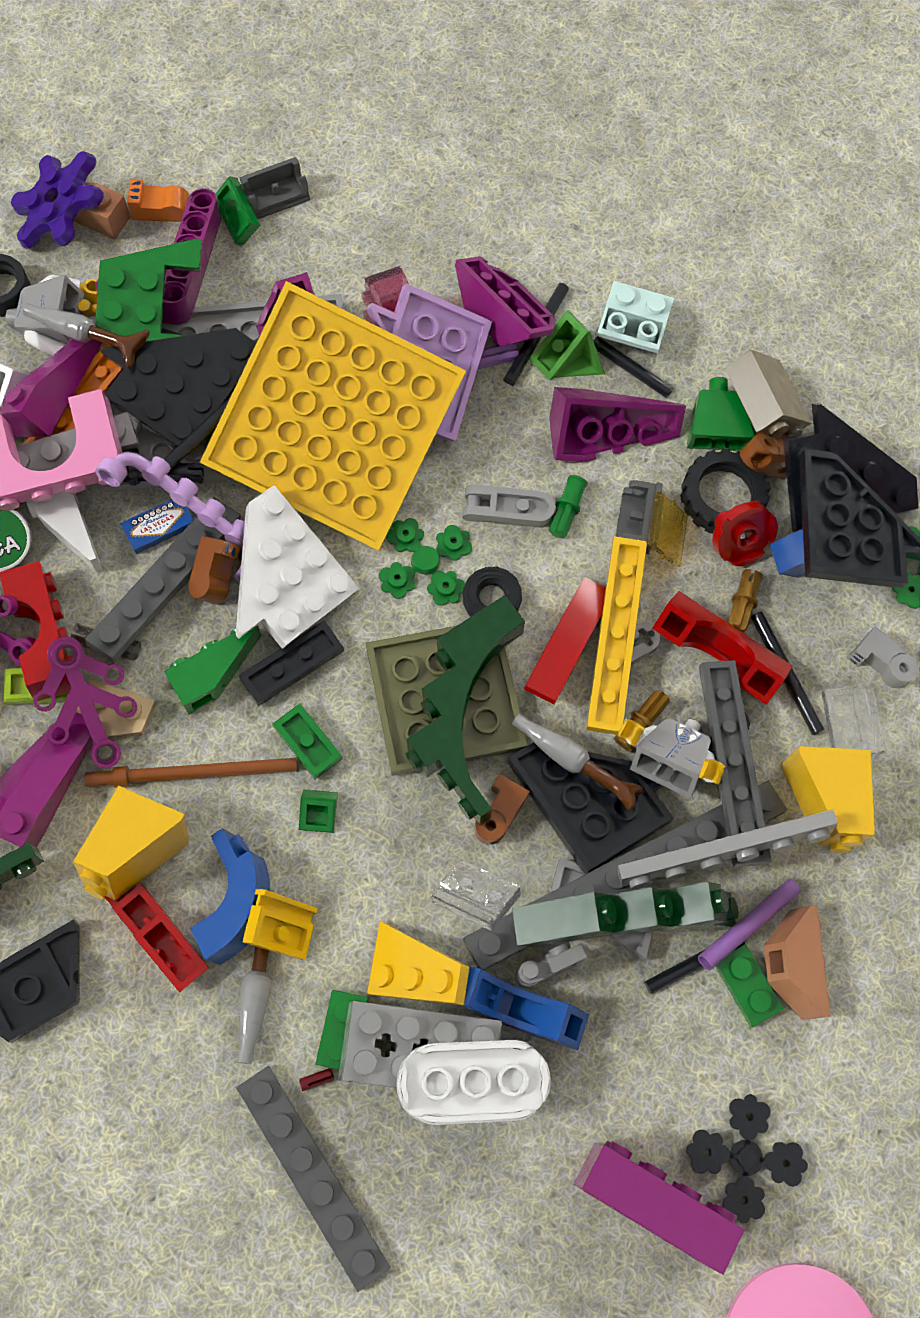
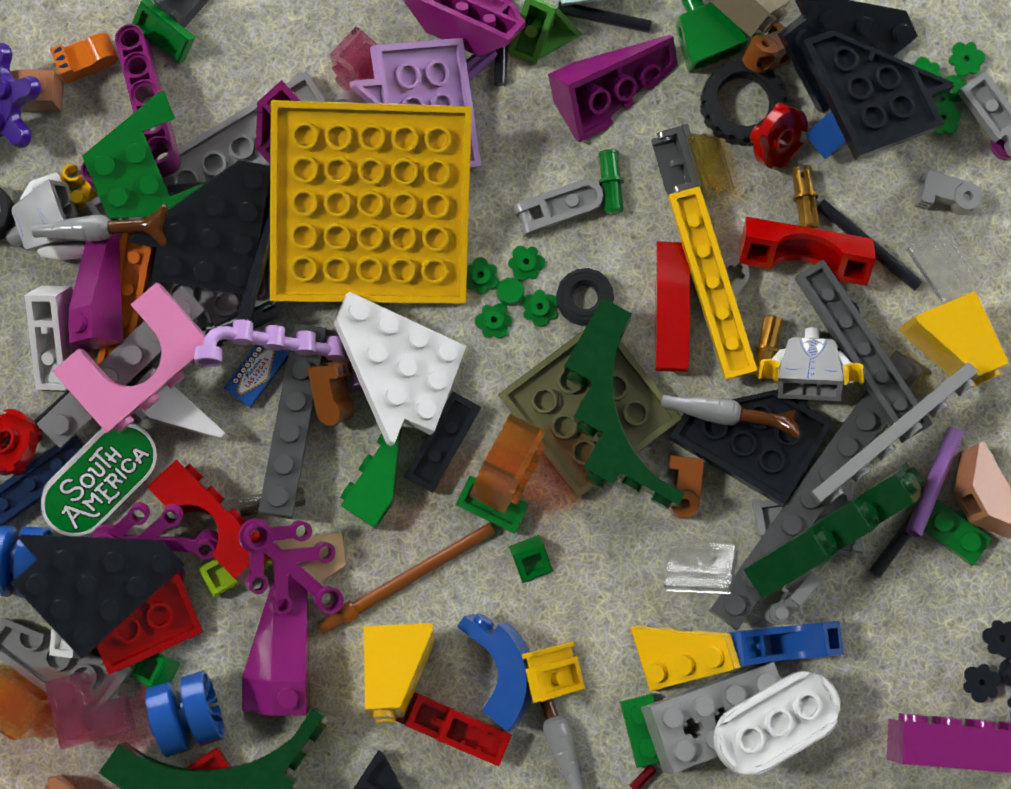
camera: 25 degrees left, 10 degrees up
(338, 704) = (509, 464): none -> clear orange brick

